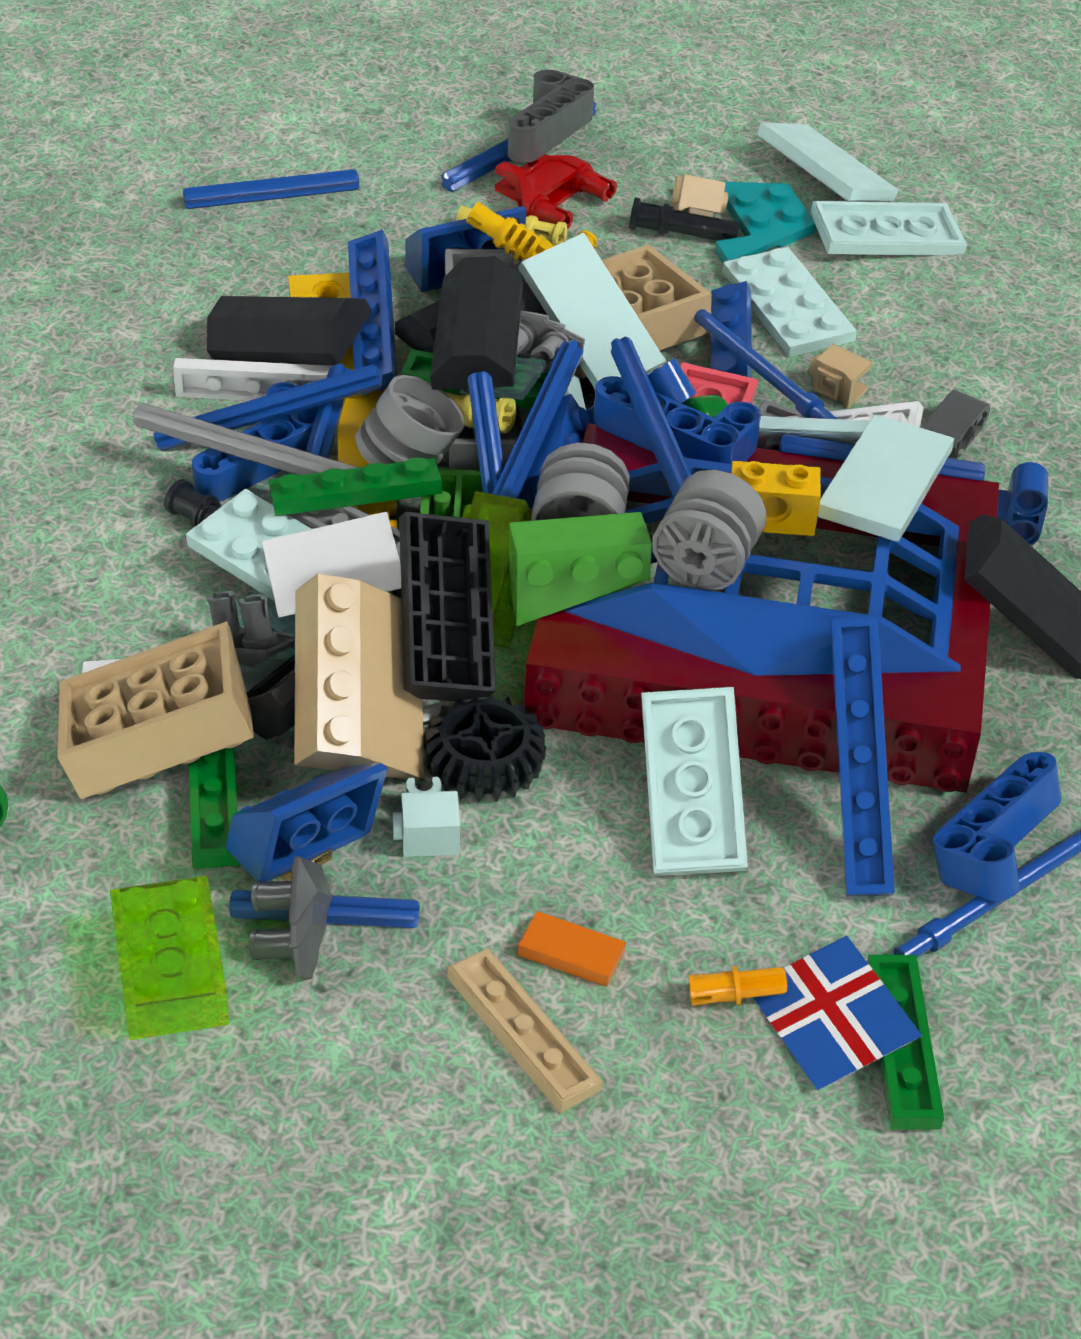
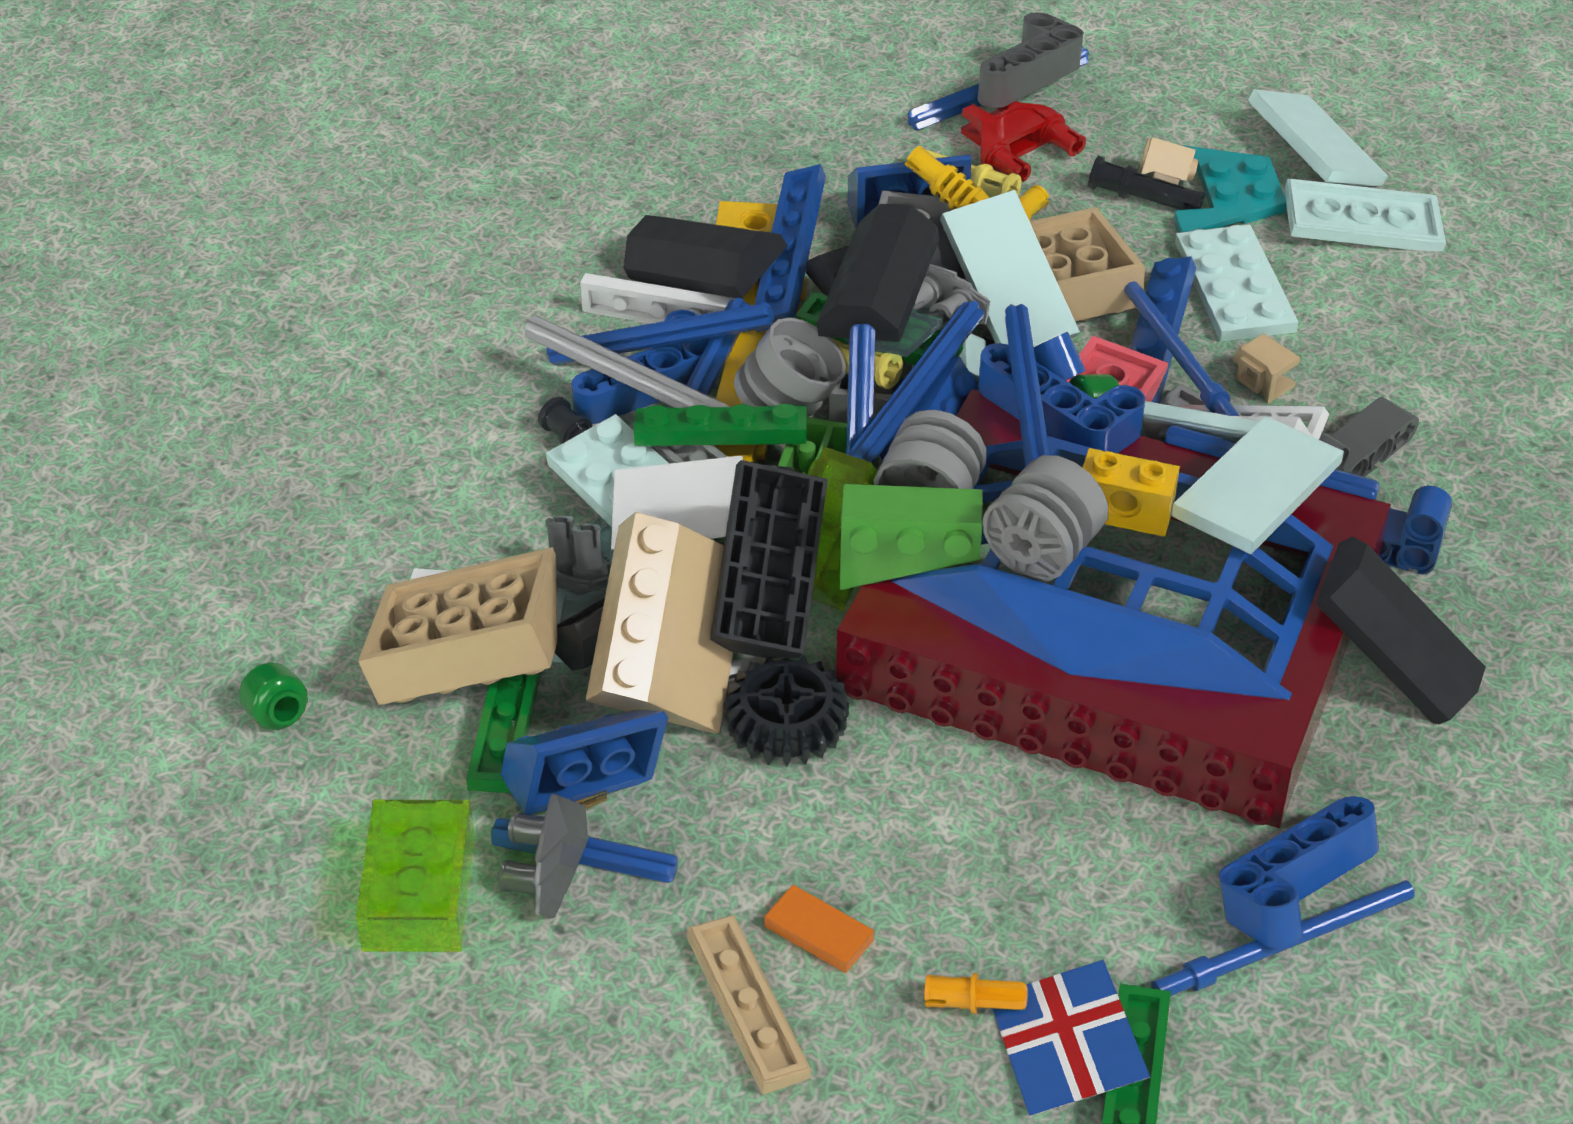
camera: 15 degrees right, 0 degrees up
(270, 189) = (733, 109): blue axle -> none
(428, 821) = (708, 776): light aqua brick -> none
(694, 782) = (983, 776): light aqua tile -> none
(862, 757) = (1159, 776): blue plate -> none

